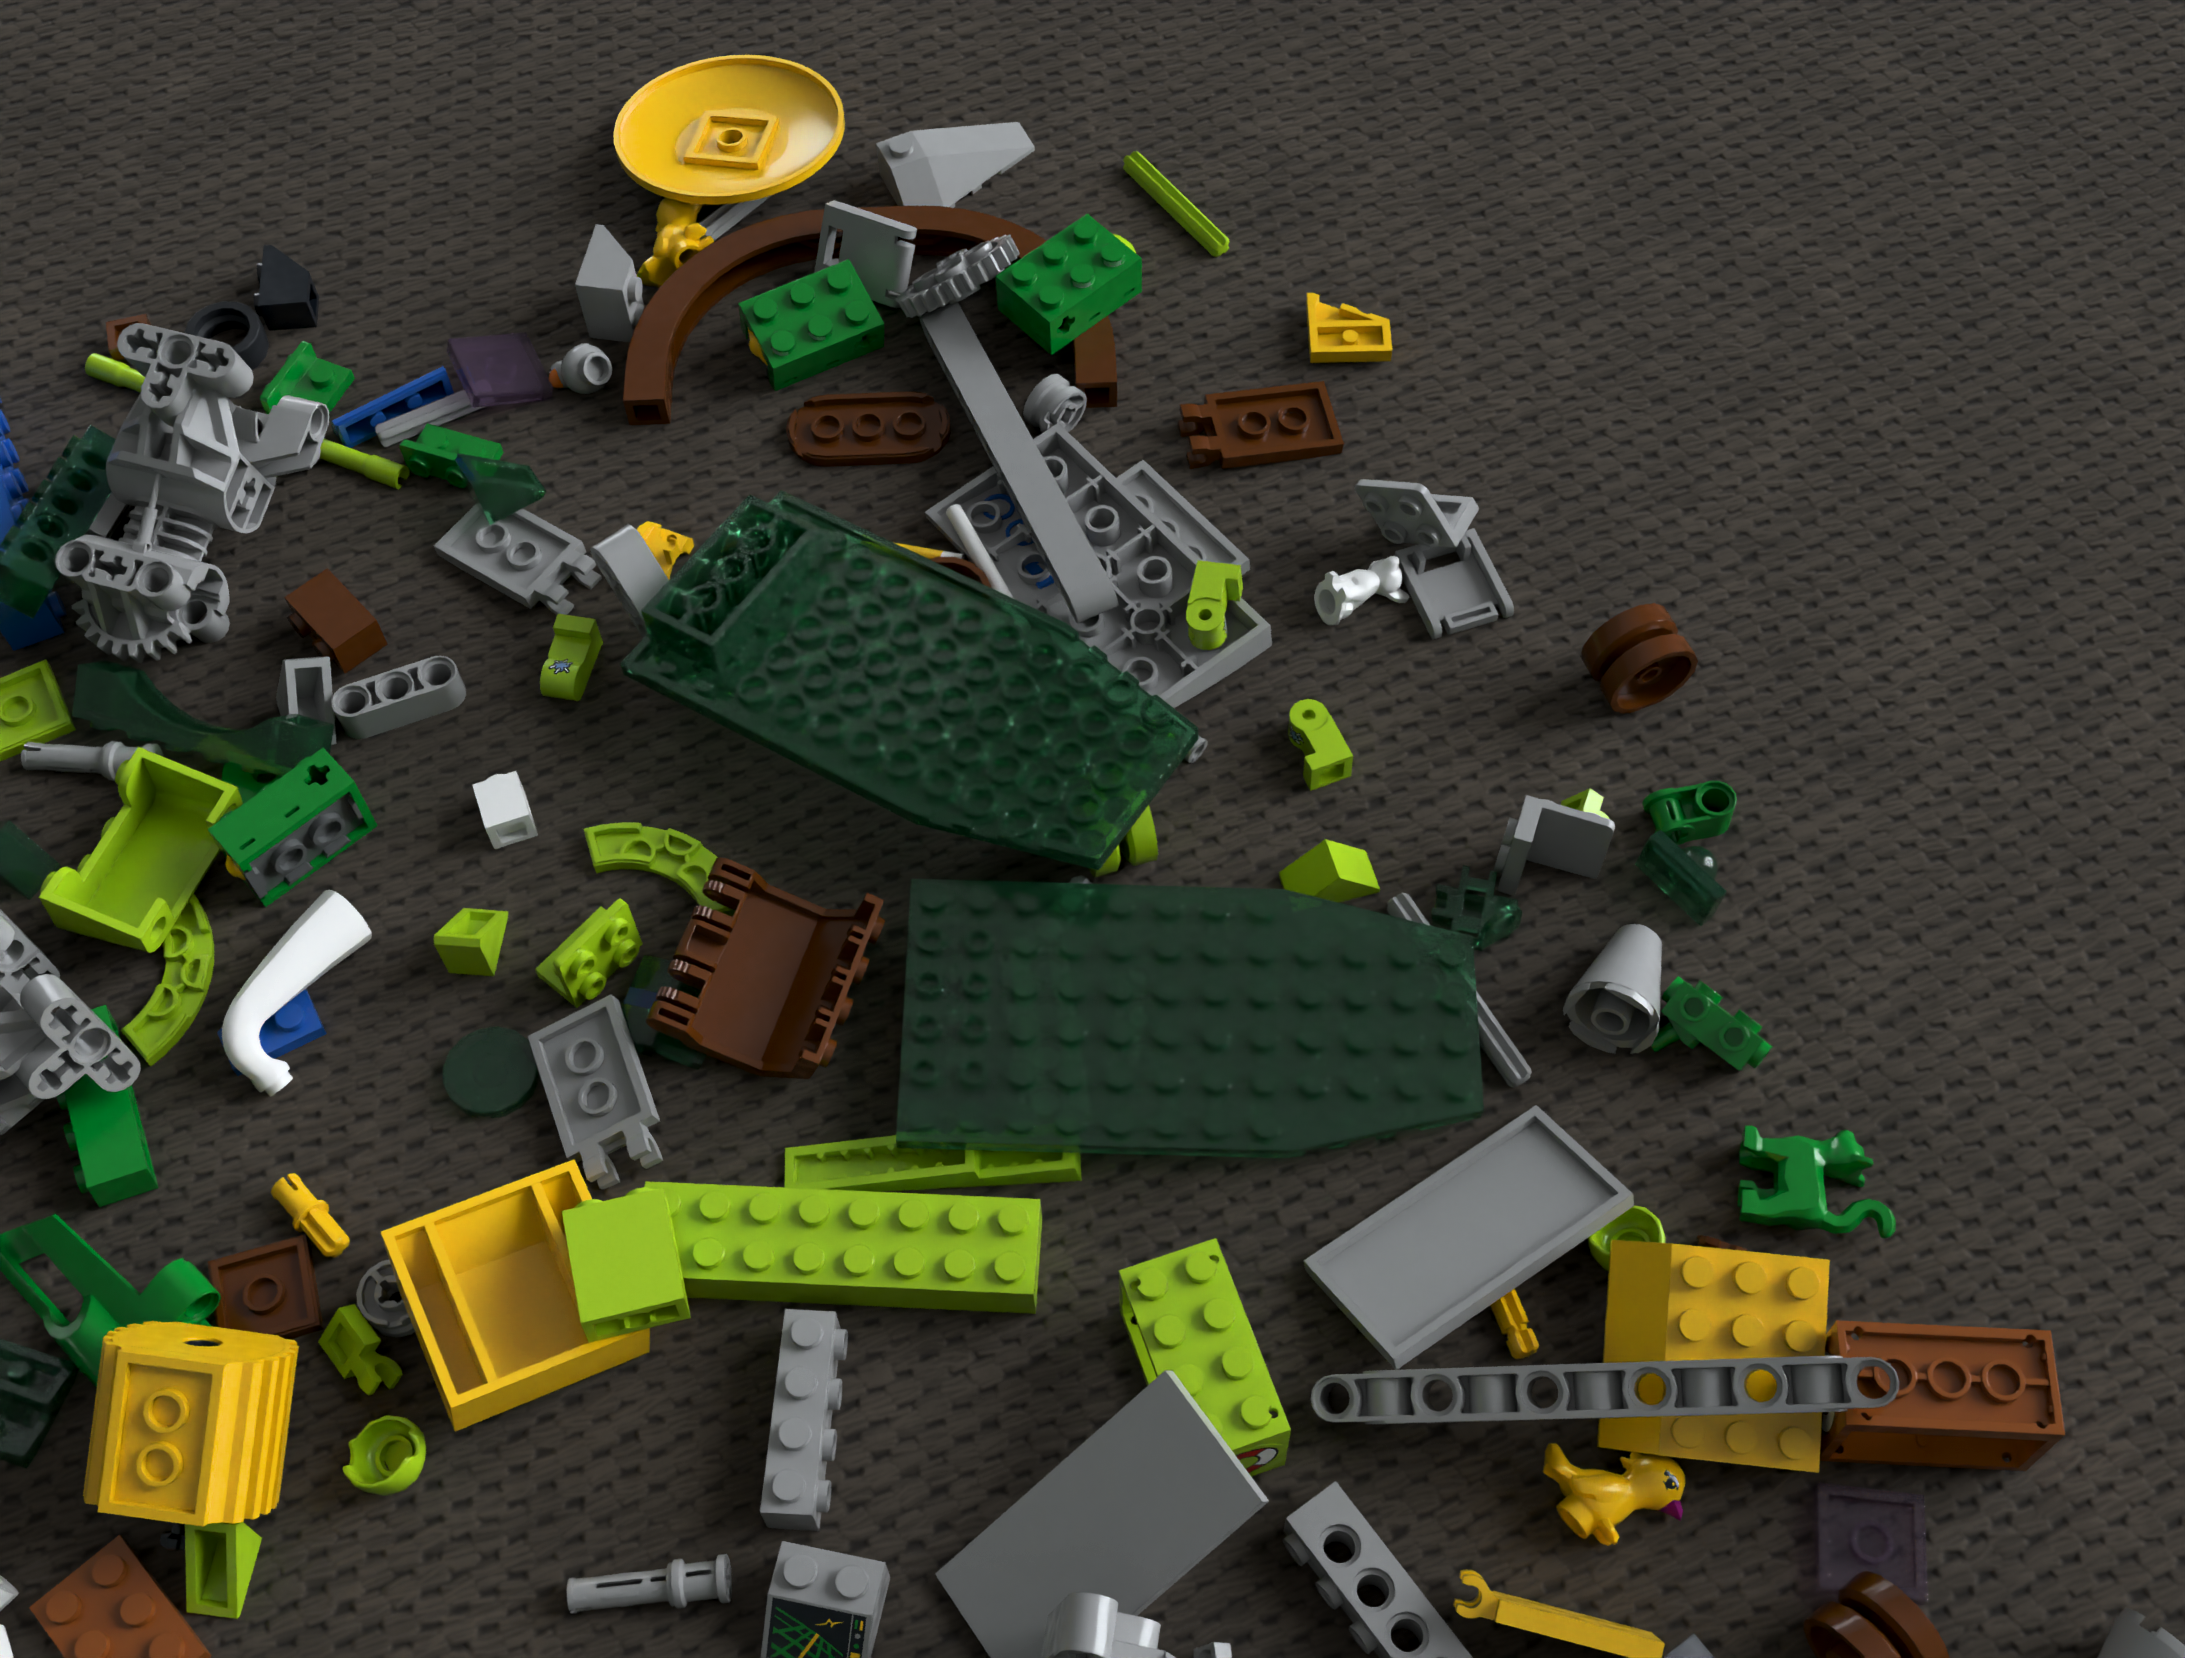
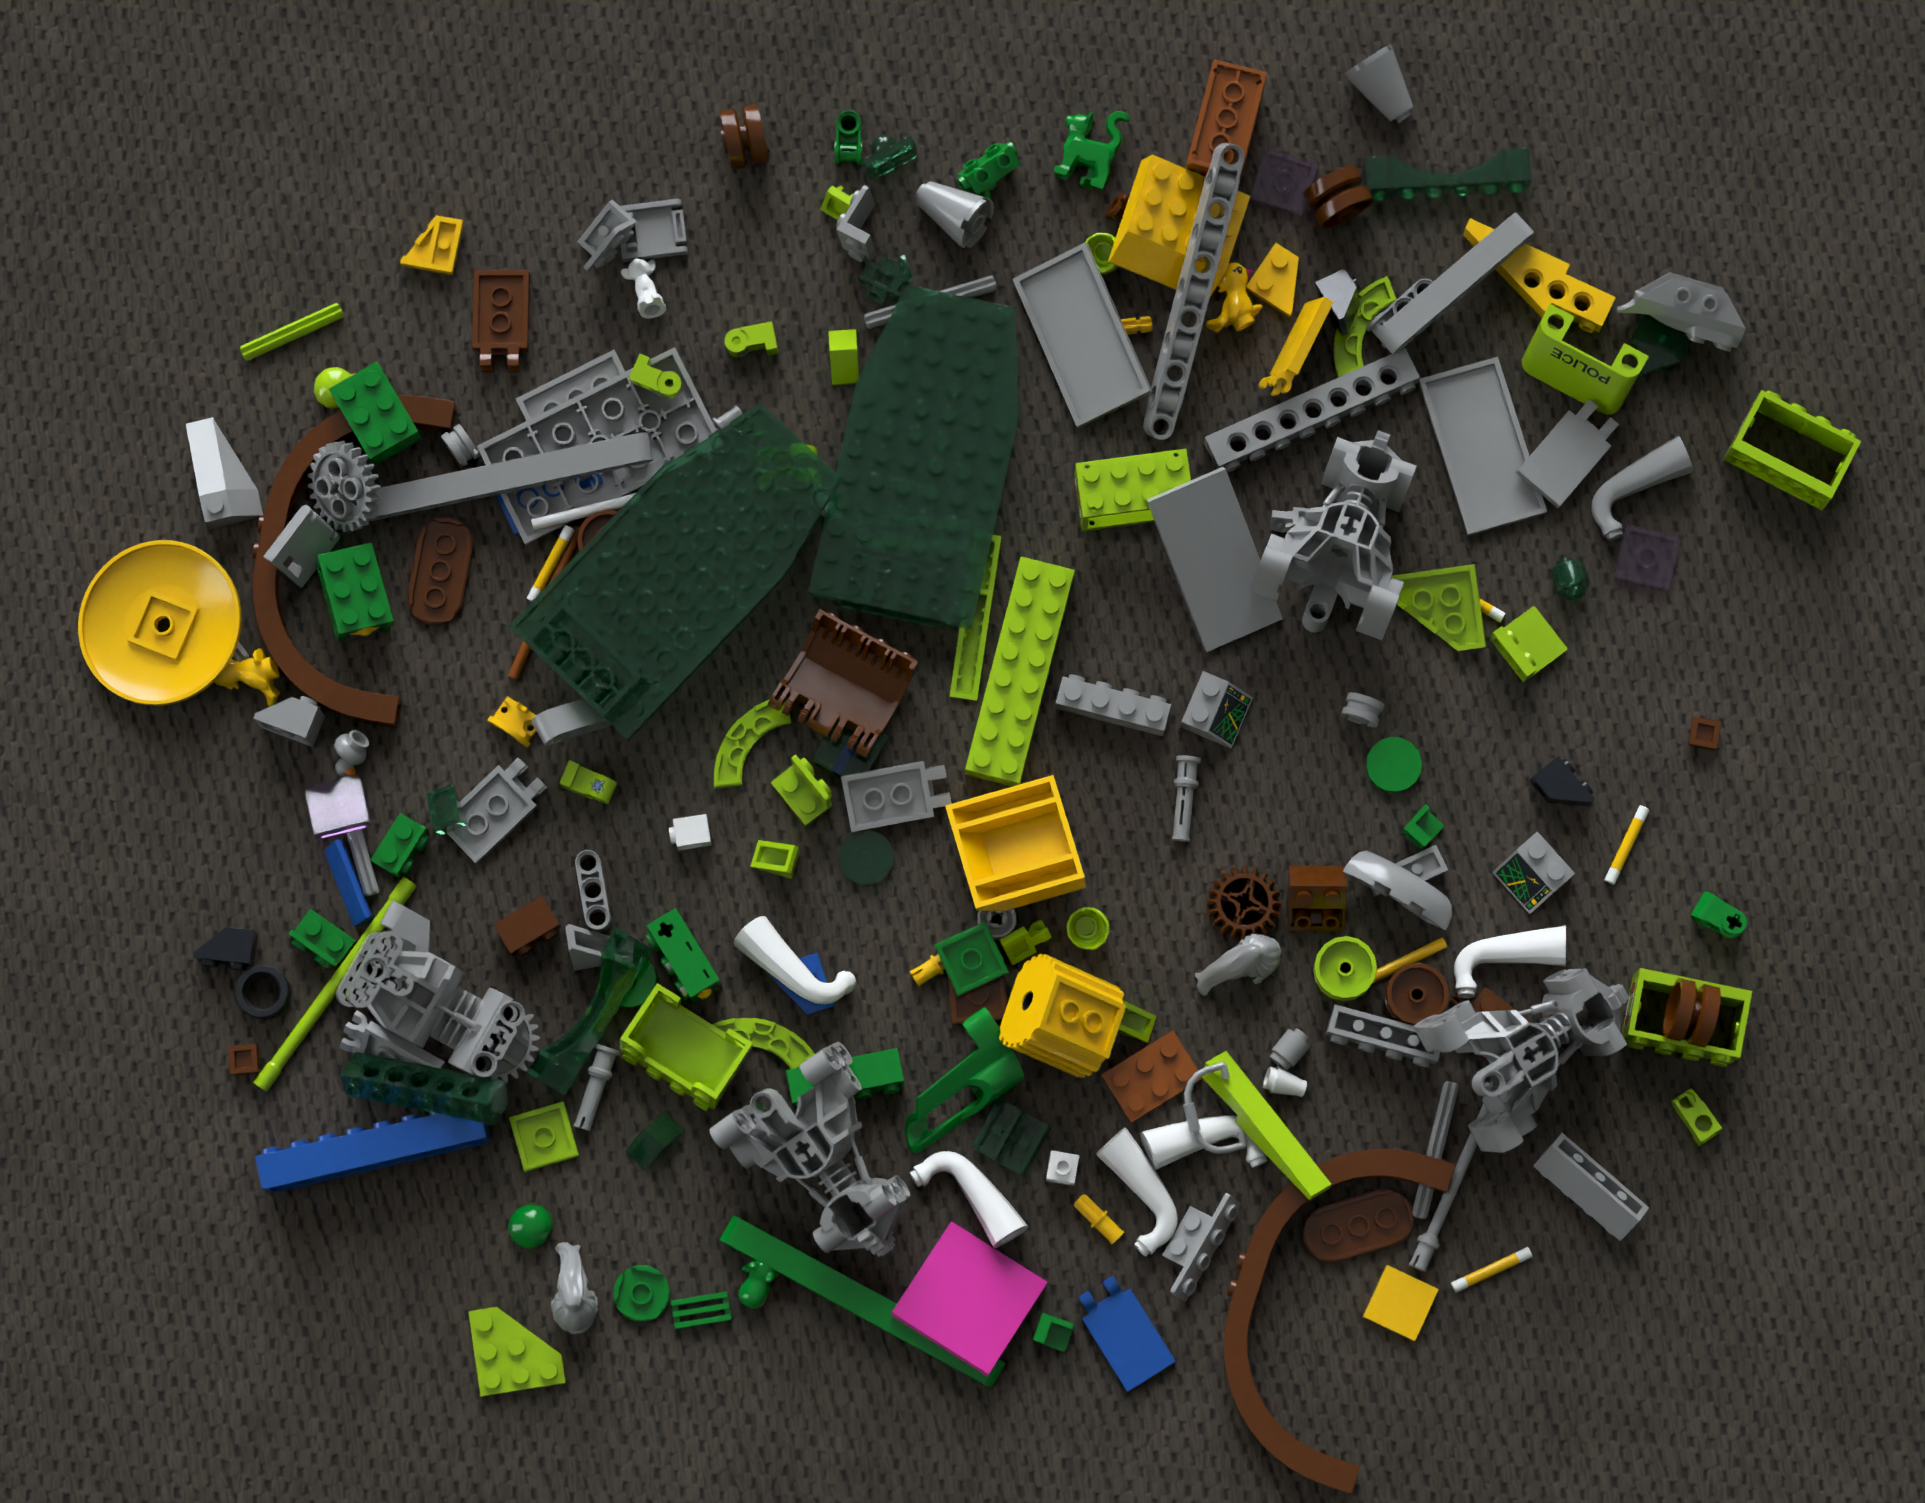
camera: 80 degrees left, 20 degrees up
(315, 1263) = (971, 958): none -> green tile
(625, 1264) = (1019, 778): lime brick -> none
(1680, 1566) = (1276, 279): none -> yellow wing

